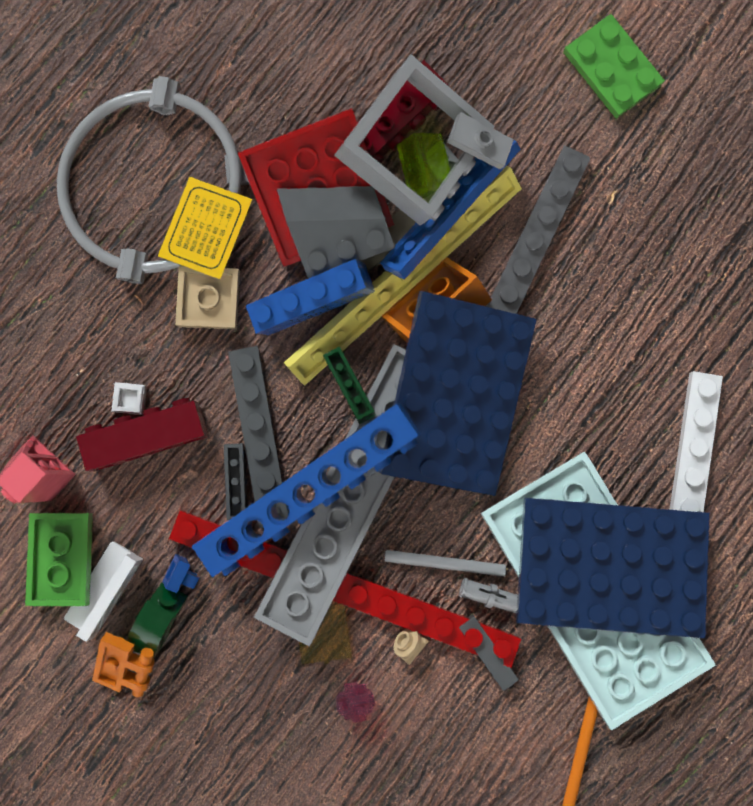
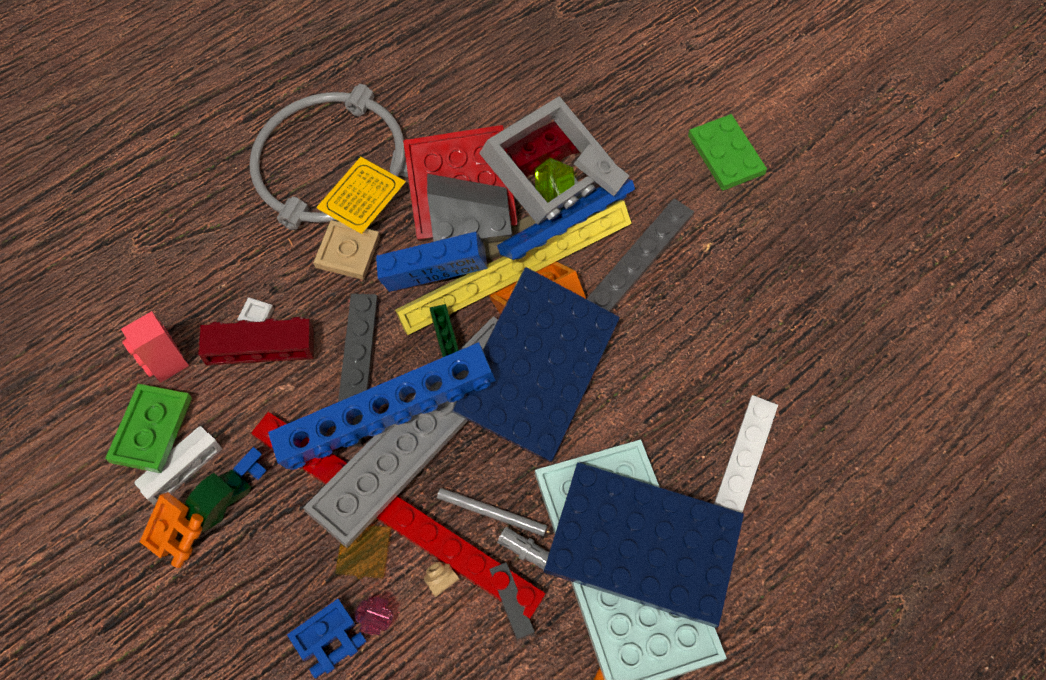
camera: 10 degrees right, 20 degrees down
(235, 479) = (327, 387): dark grey piece -> none
(306, 726) = (322, 630): none -> blue plate

